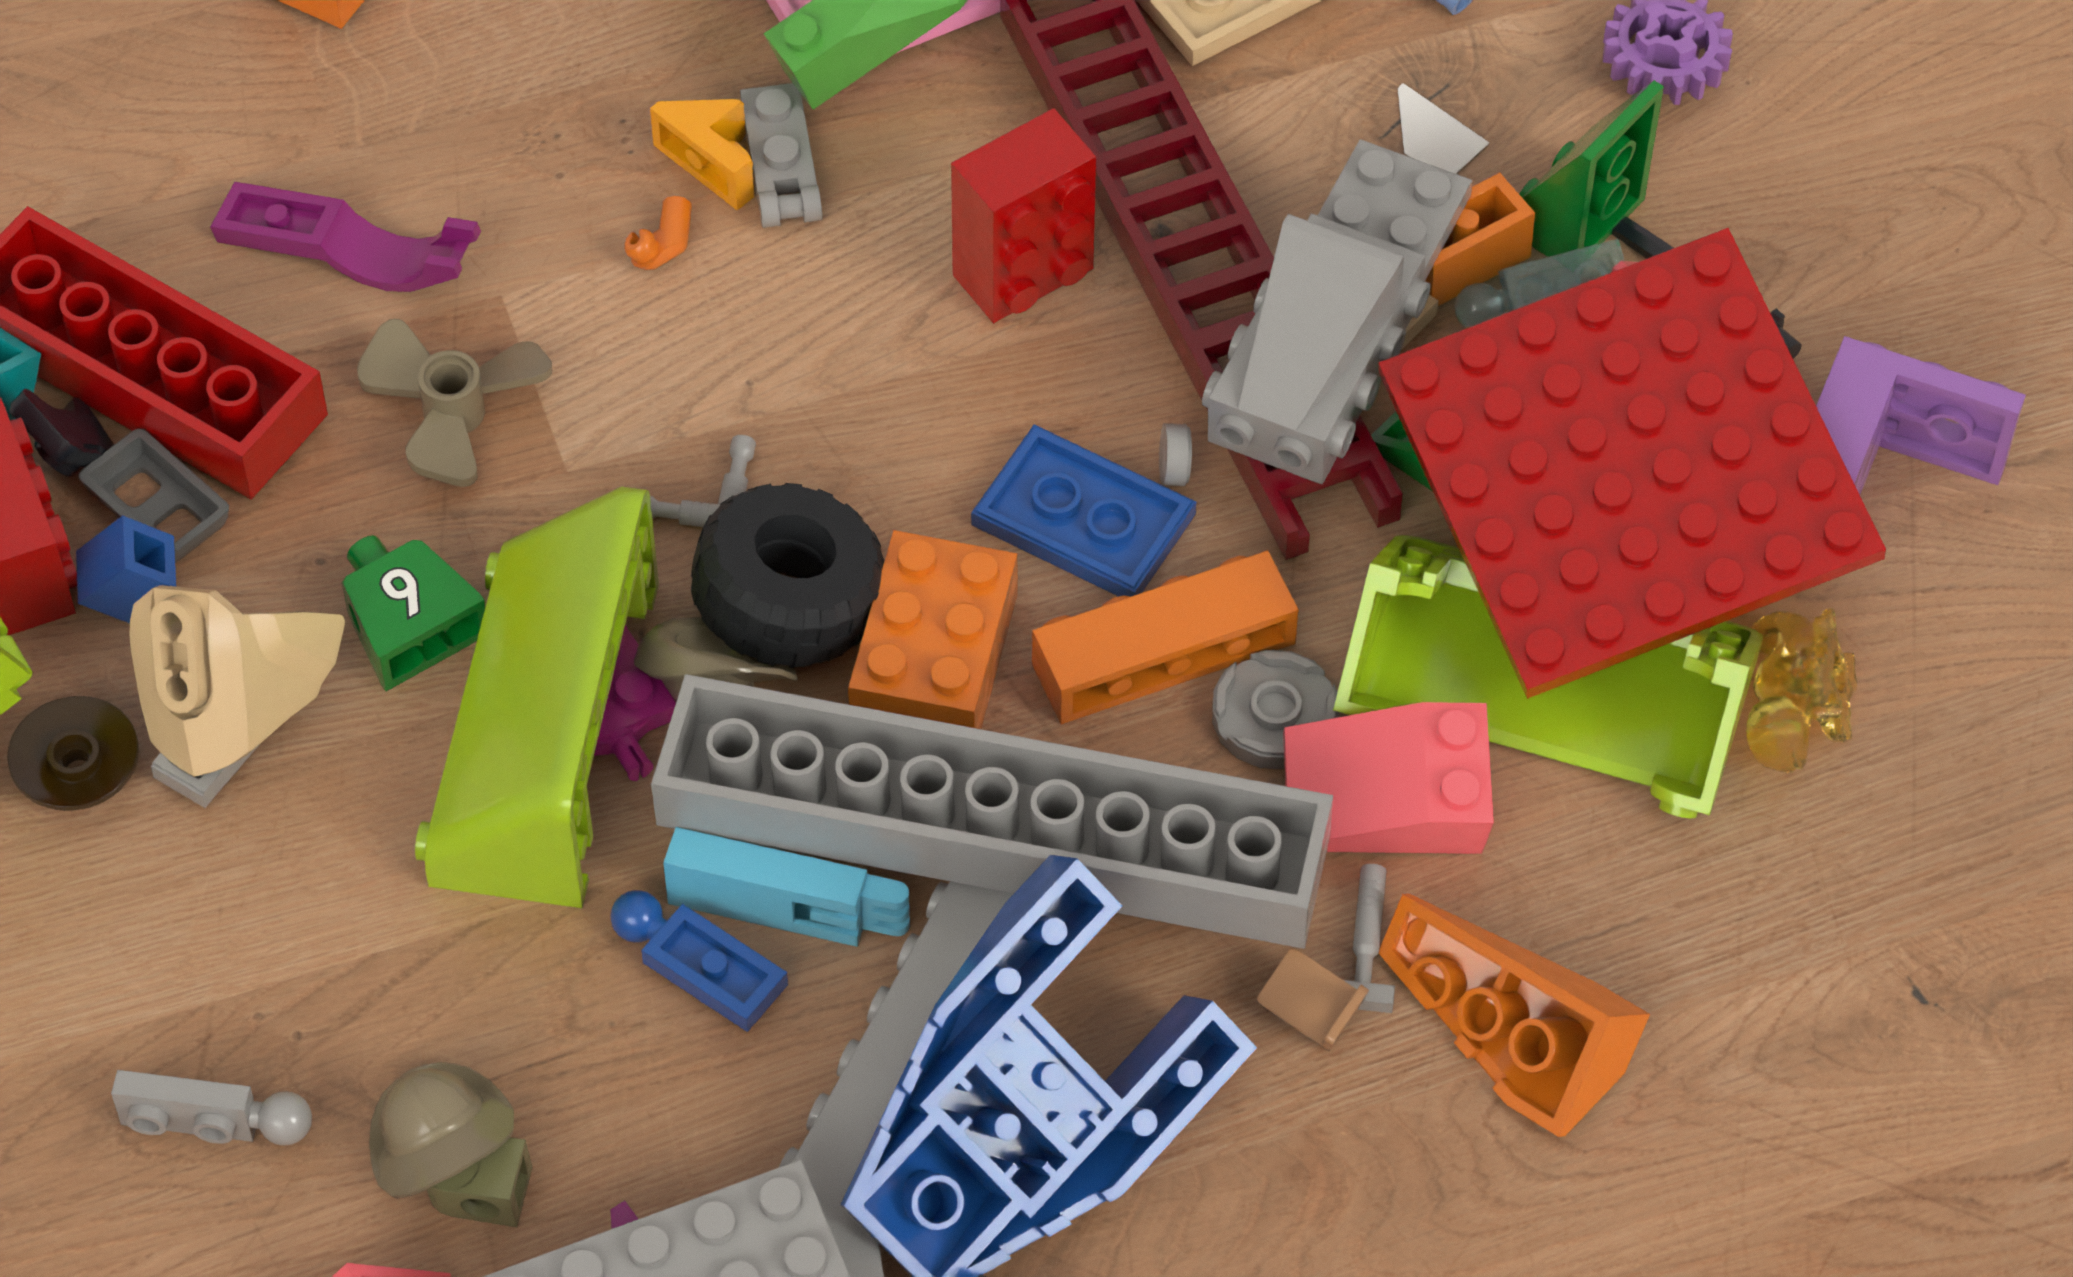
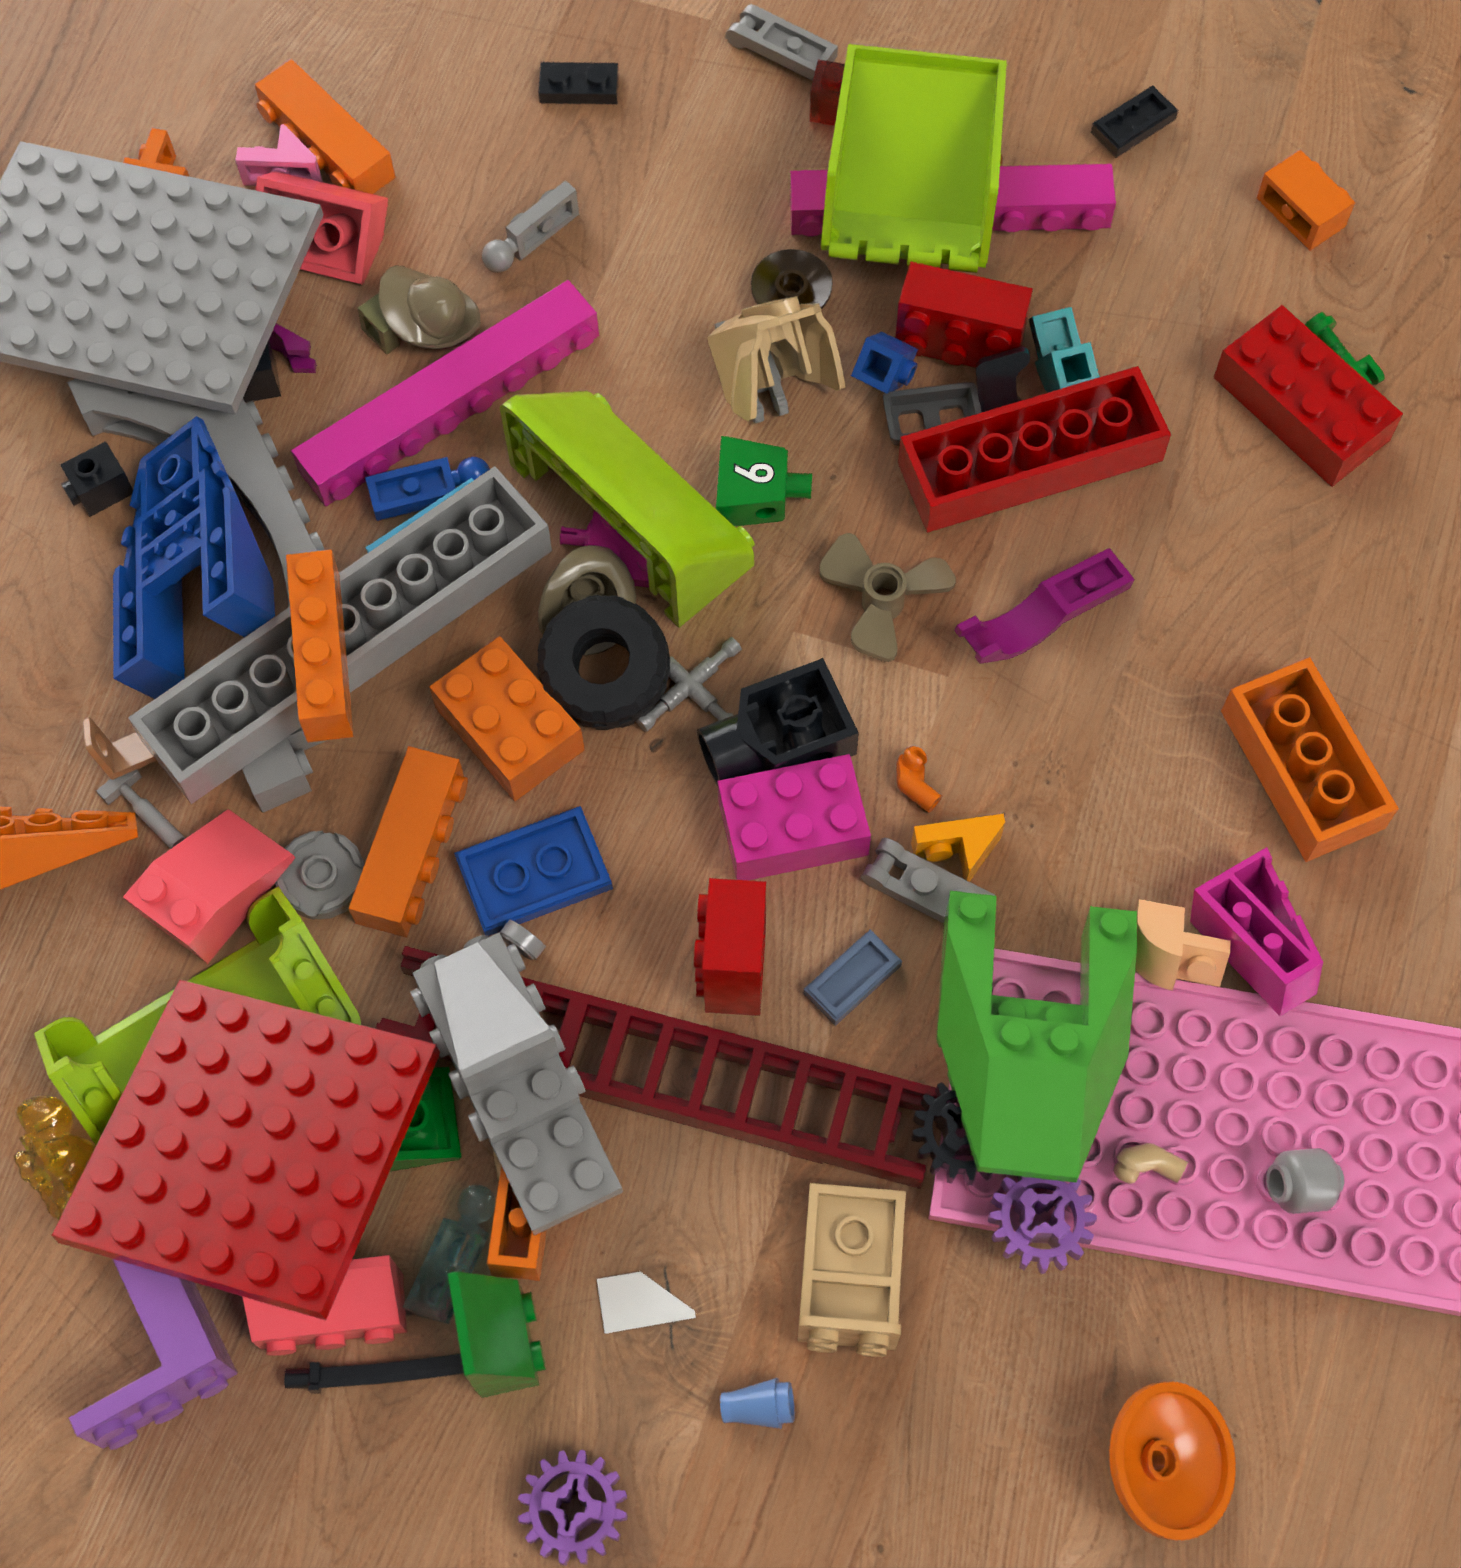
camera: 130 degrees right, 10 degrees up
(545, 1022) = (446, 393): none -> dark pink brick
(717, 368) = (781, 725): none -> black brick
(813, 300) = (794, 818): none -> dark pink brick
(921, 158) = (852, 977): none -> sand blue tile
(1053, 750) = (319, 646): none -> orange brick

